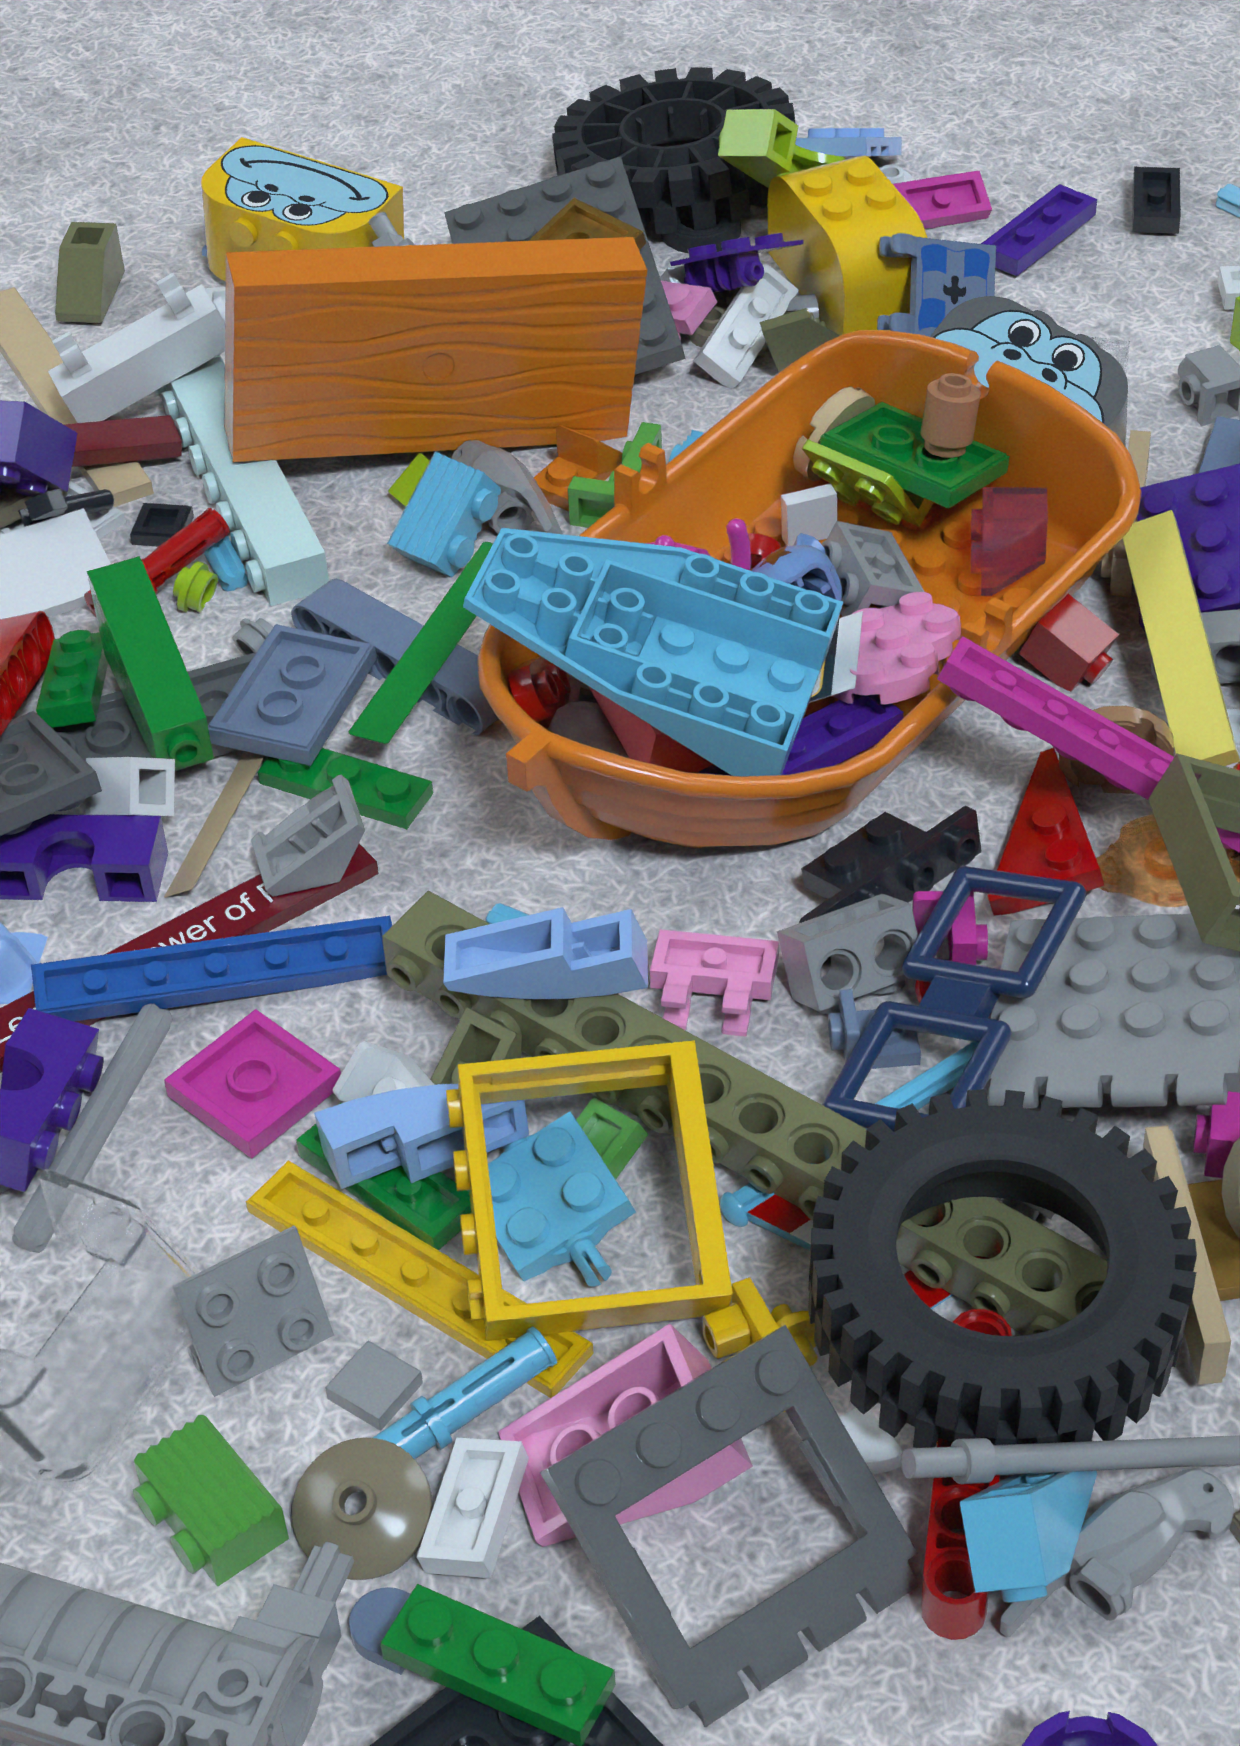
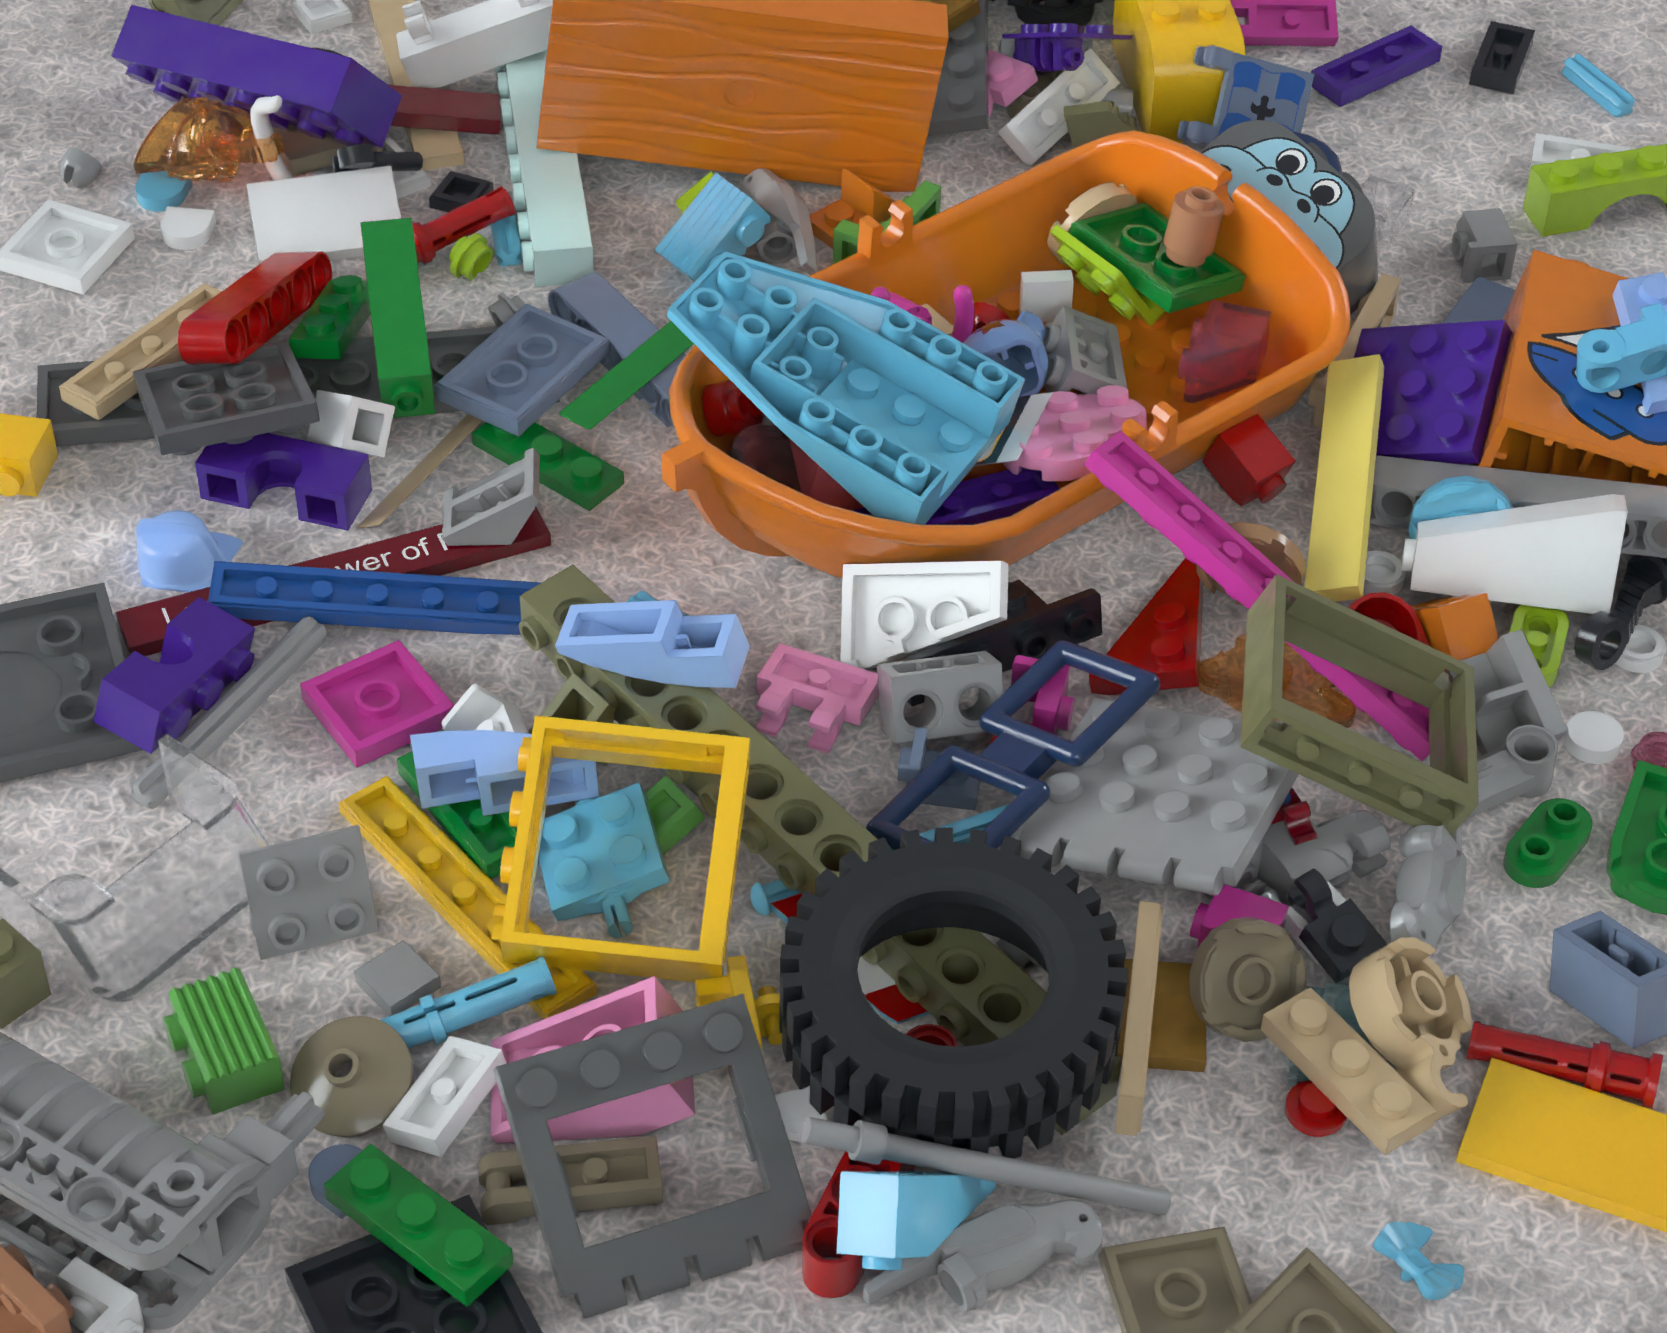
camera: 10 degrees right, 0 degrees up
(678, 1552) = (597, 1172): none -> dark tan plate
(798, 860) = (915, 606): none -> white wing

